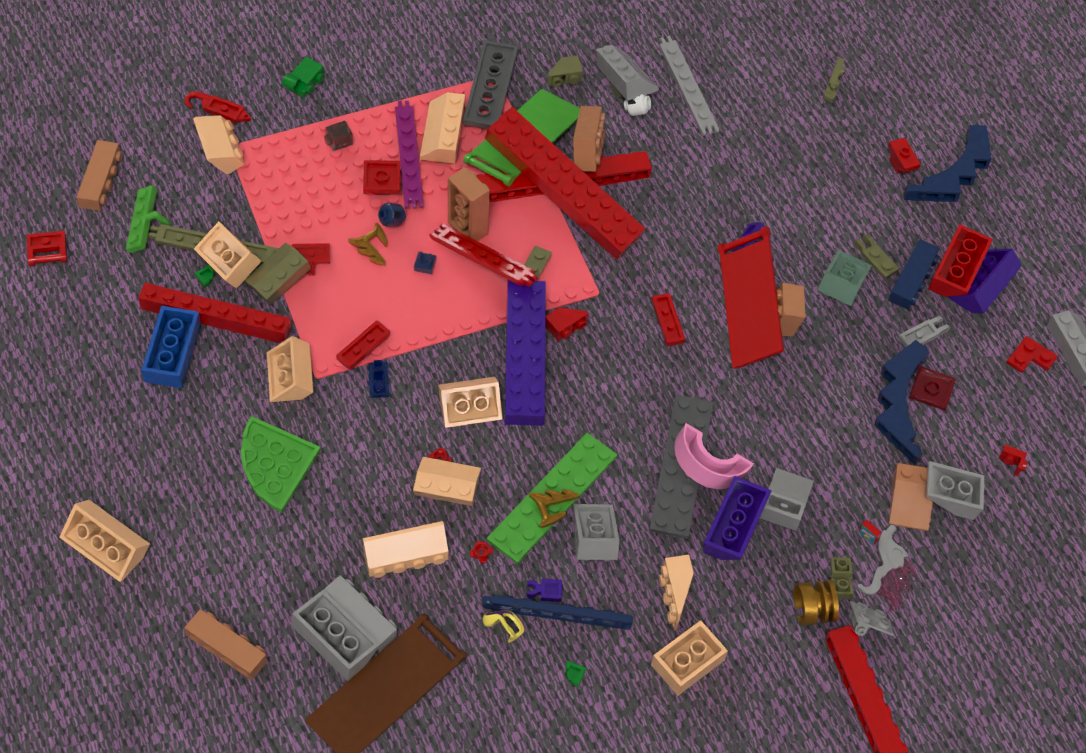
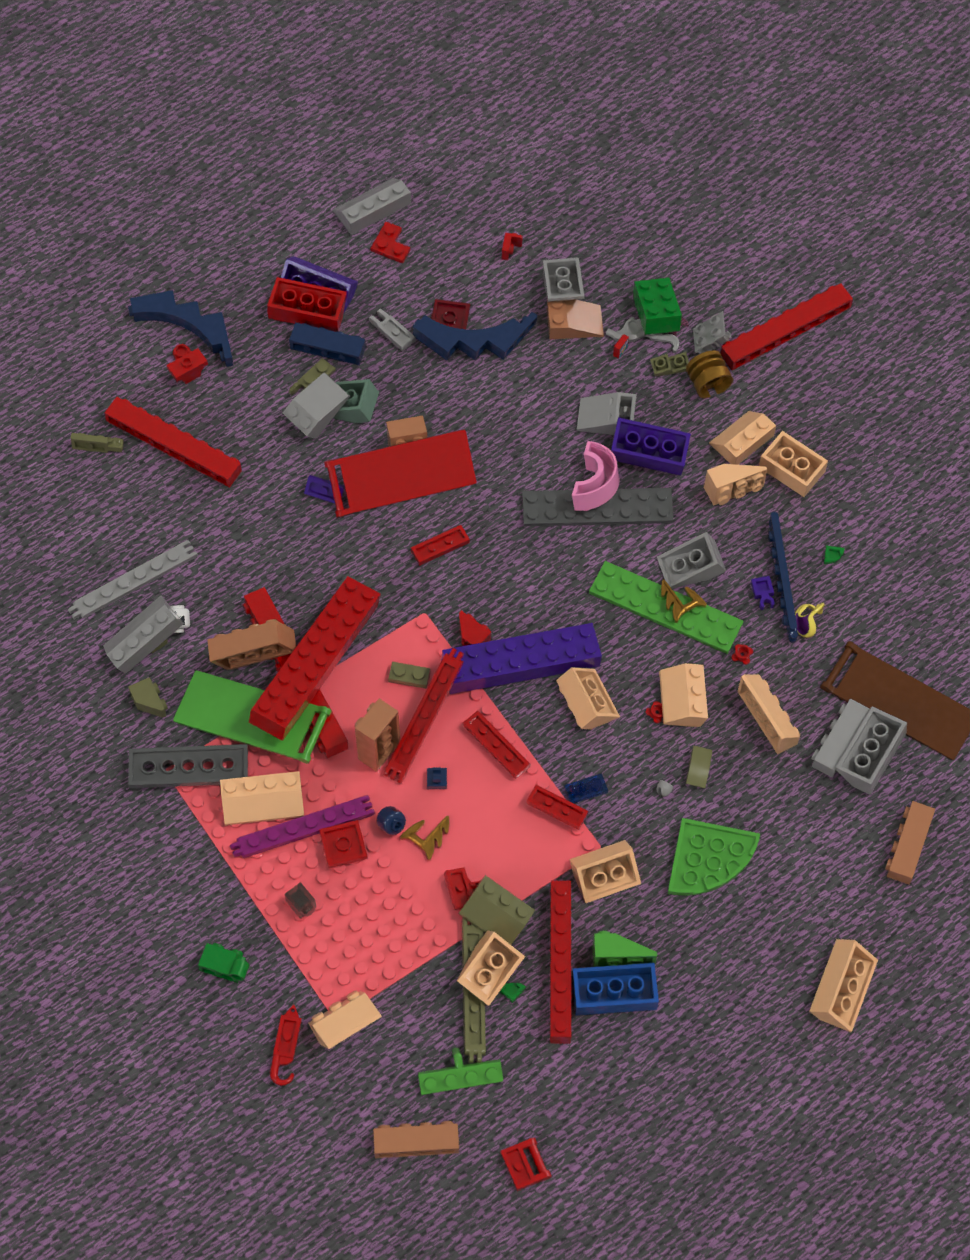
camera: 100 degrees left, 5 degrees up
(202, 355) = (614, 950): none -> bright green slope
(355, 441) = (664, 788): none -> light grey hinge
(369, 476) = (699, 766): none -> olive slope
(442, 313) = (496, 744): none -> red plate
(734, 622) = (744, 437): none -> light nougat slope
(824, 135) = (173, 441): none -> red brick
(837, 242) = (316, 405): none -> light grey slope
(913, 575) = (657, 306): none -> green brick
(925, 160) = (180, 350): none -> red plate

